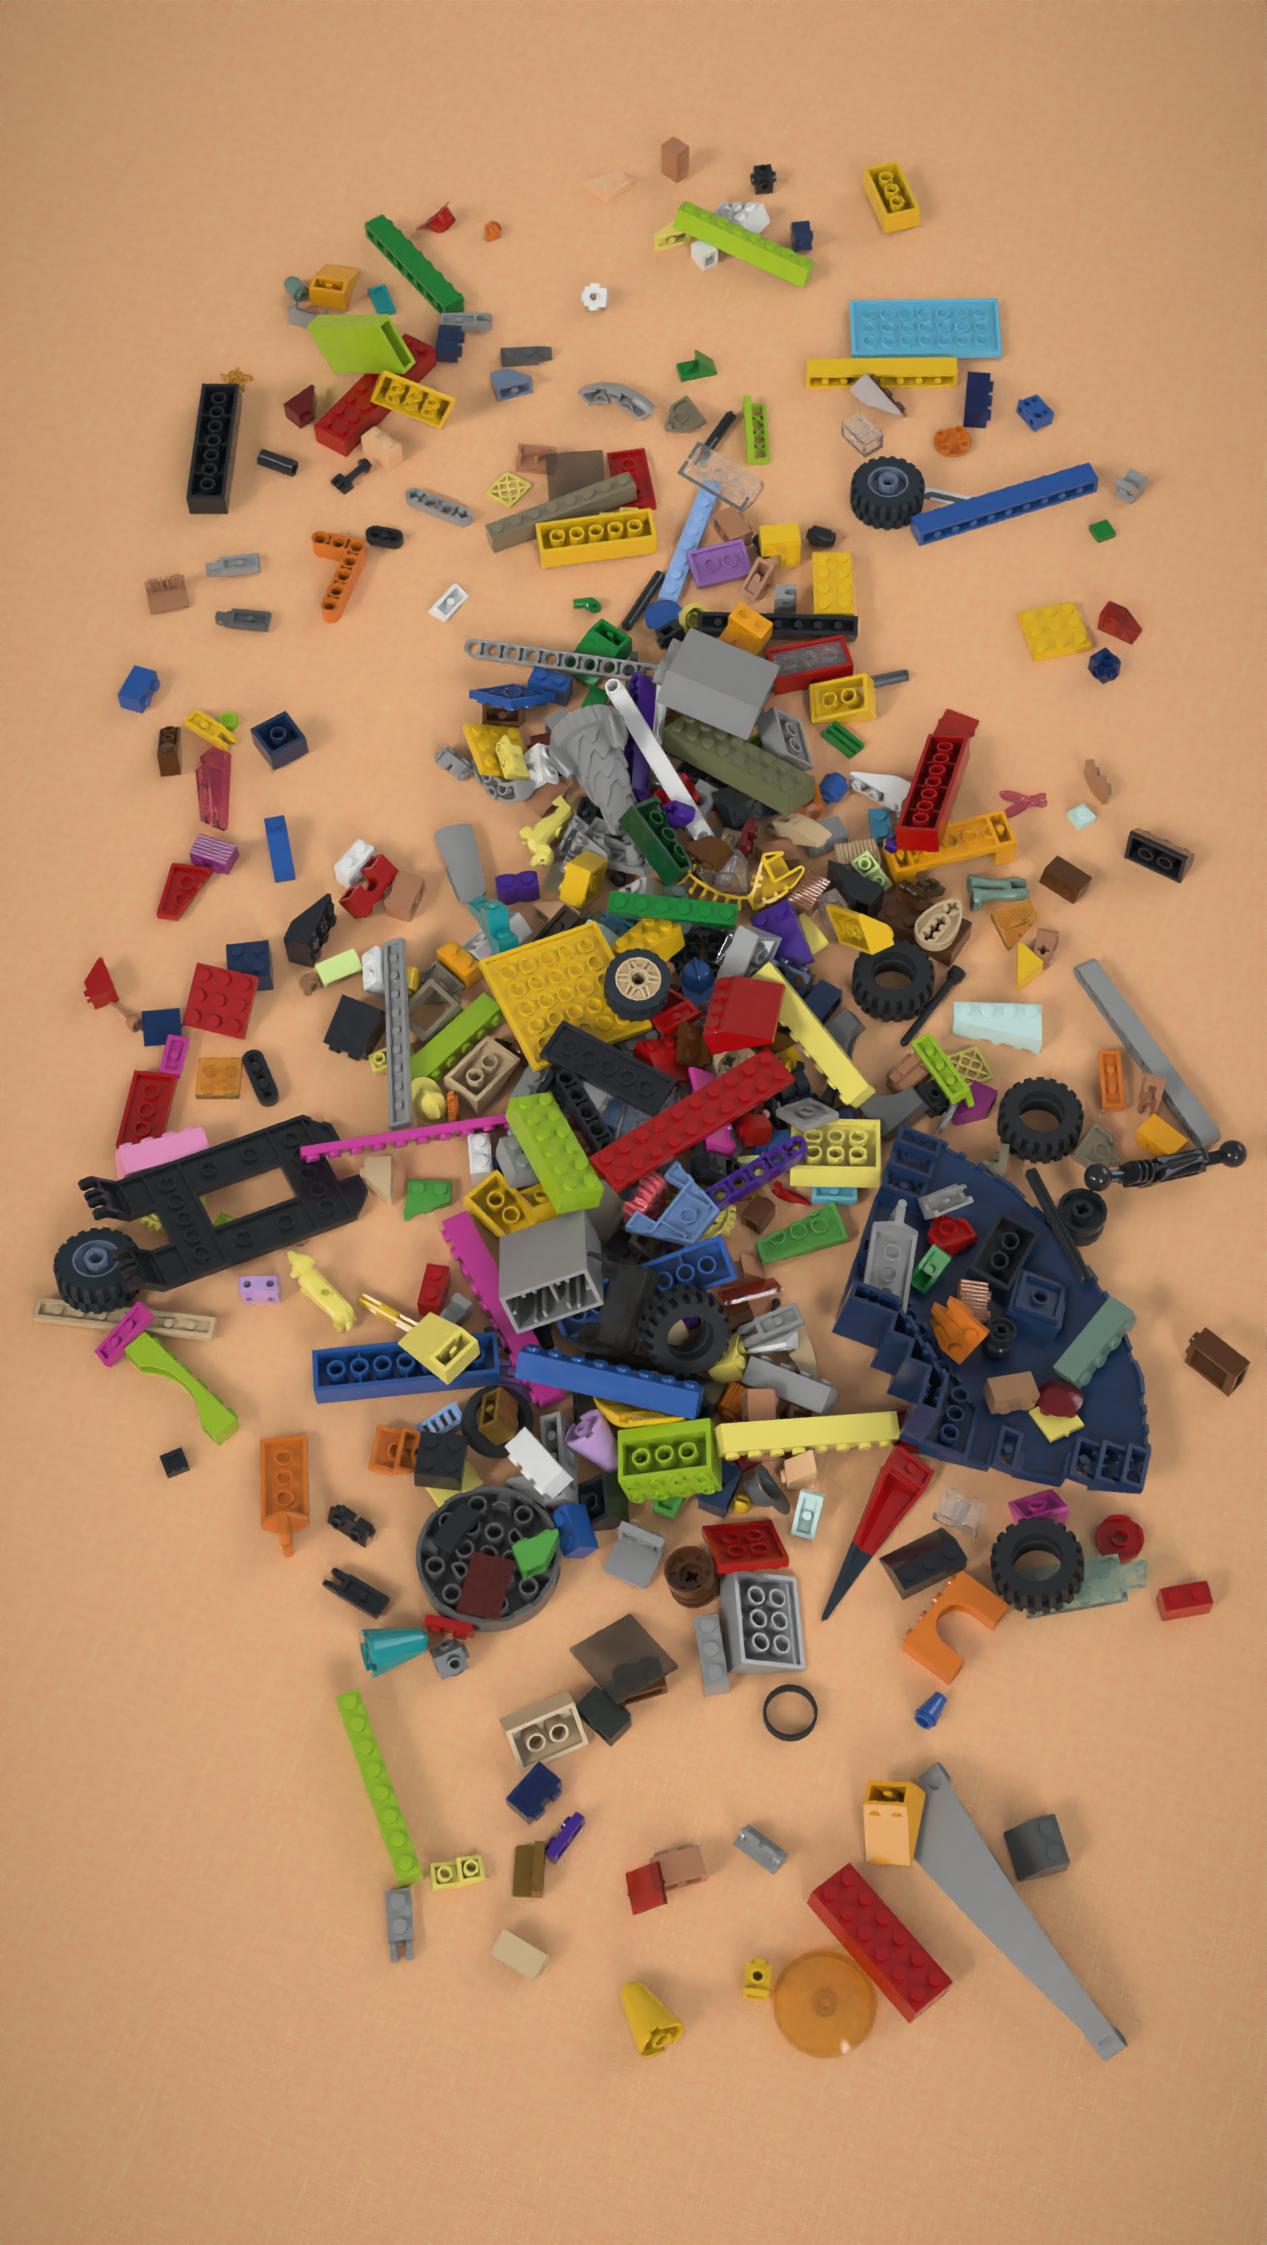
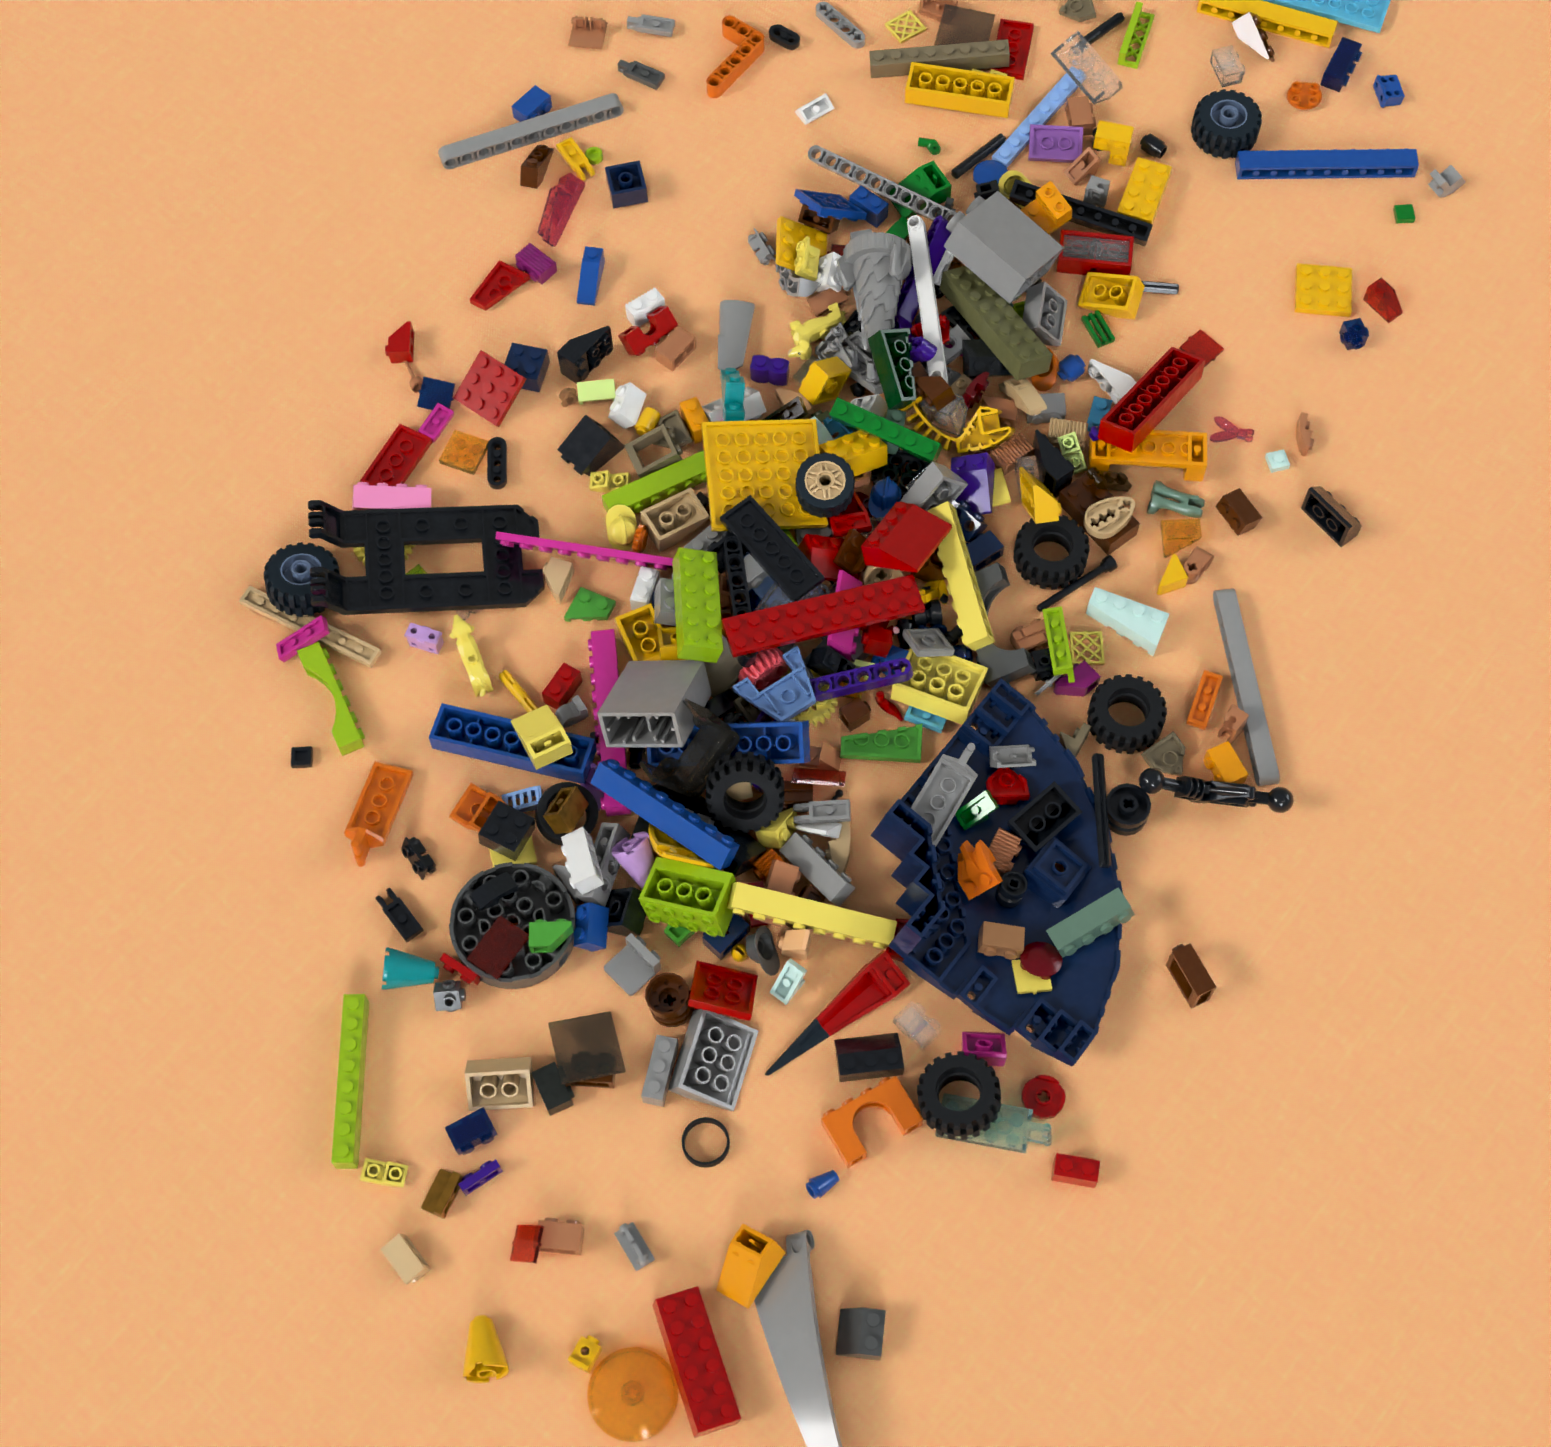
camera: 20 degrees right, 5 degrees up
(147, 716) = (530, 131): none -> light grey beam
(397, 1034) = (617, 462): light grey plate -> none
(399, 1921) = (323, 1196): light grey hinge -> none
(943, 496) = (1276, 142): sticker -> none

